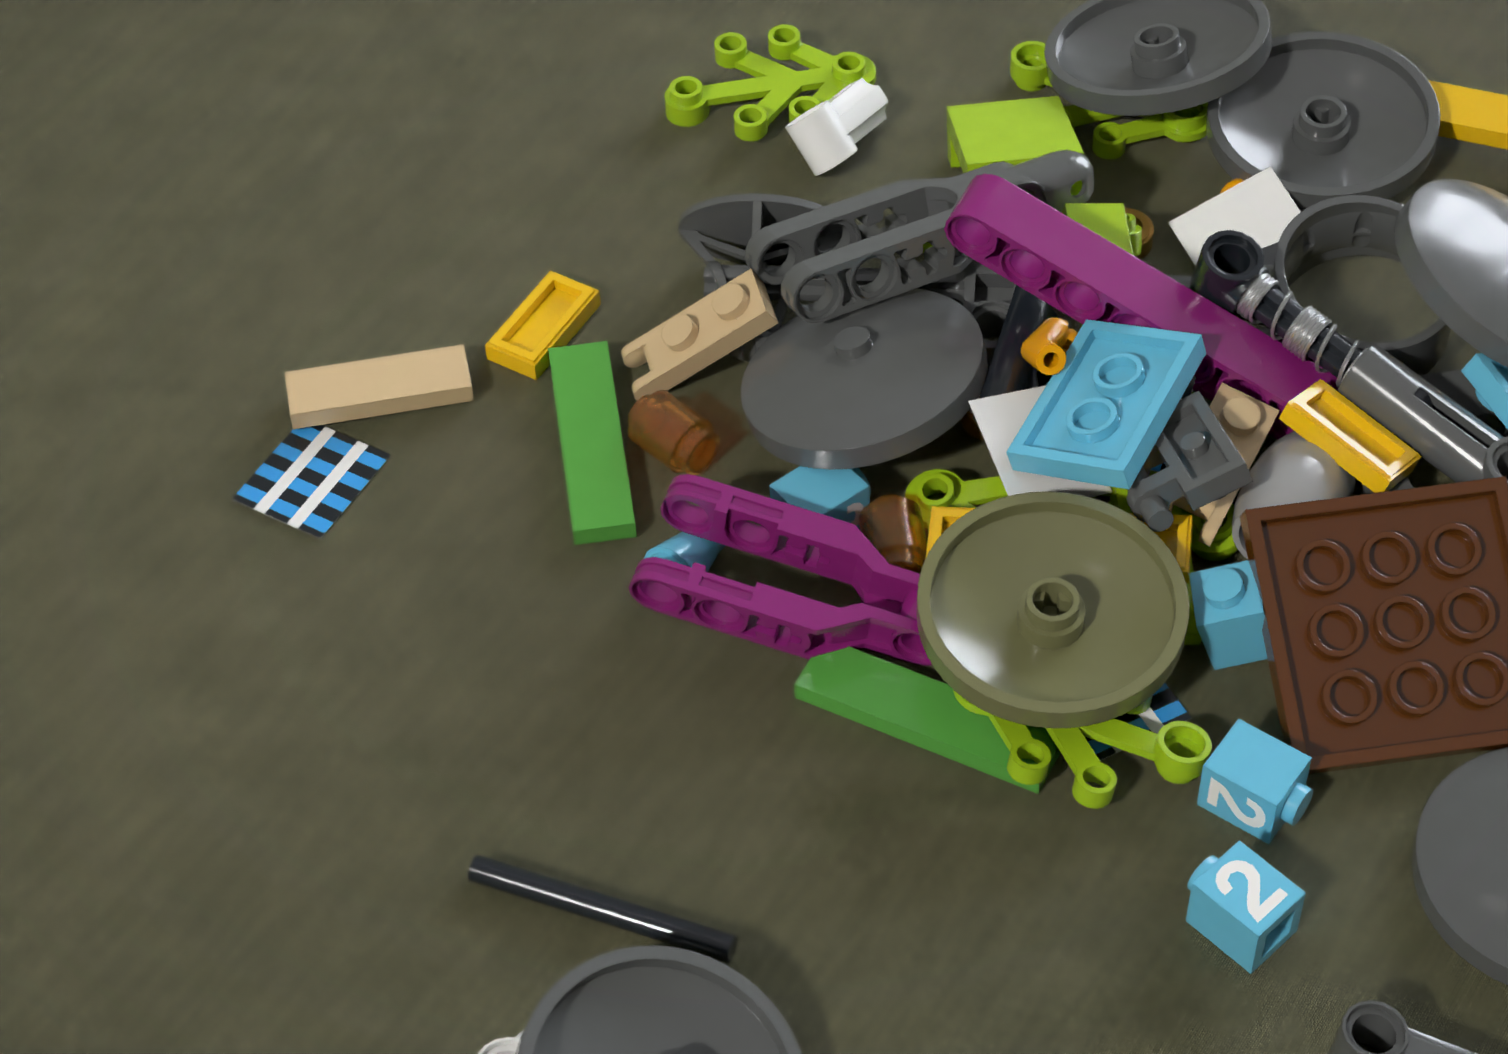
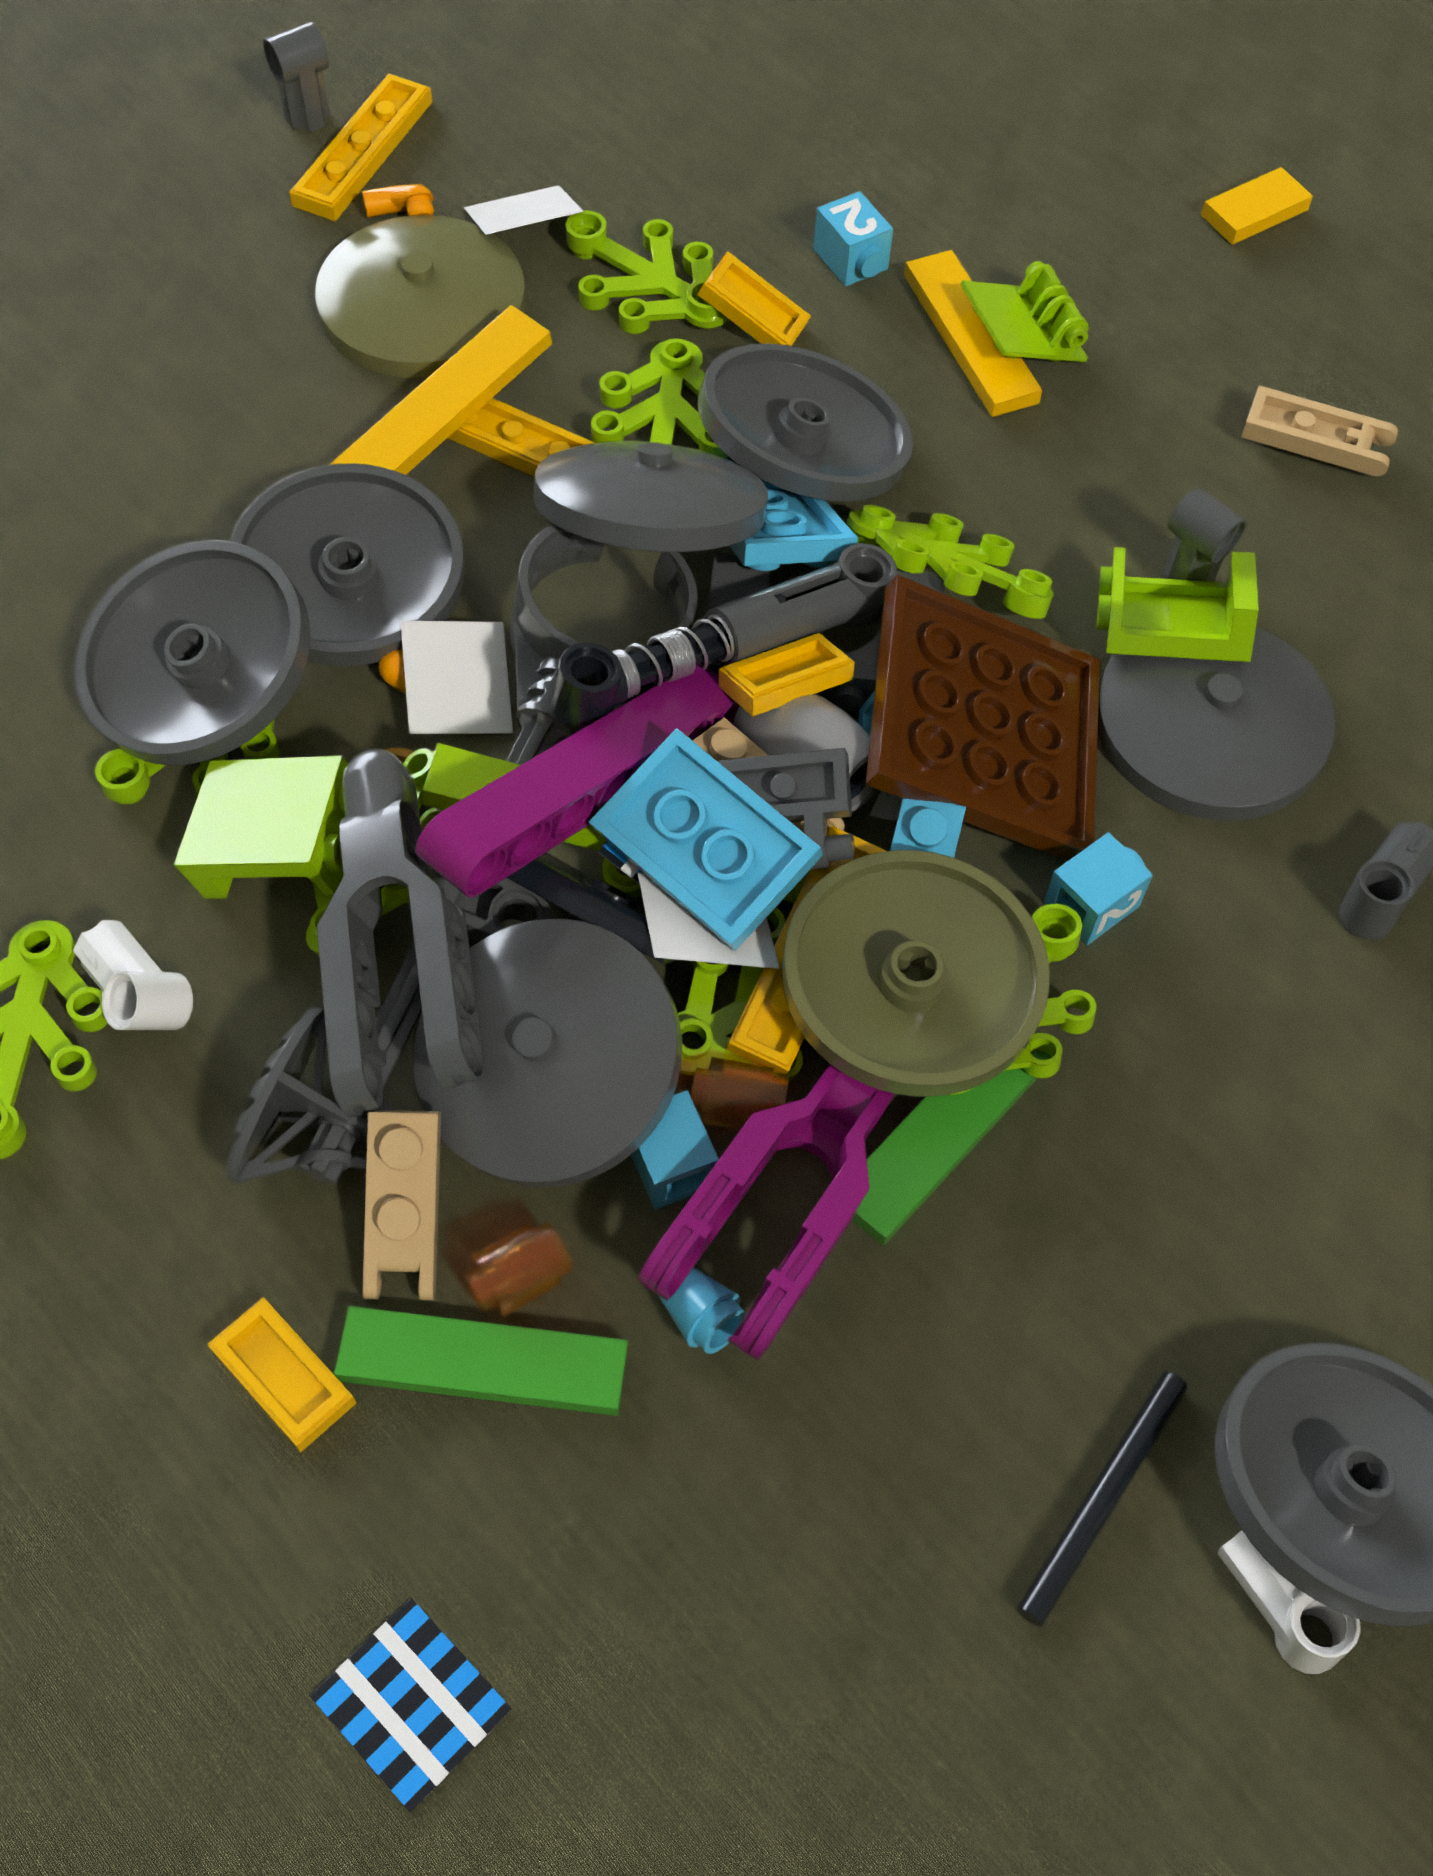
camera: 80 degrees left, 10 degrees up
(378, 386) = (307, 1591): tan tile -> none
(1048, 346) = (606, 873): light orange arm -> none
(1243, 905) = (1224, 939): medium azure brick -> none

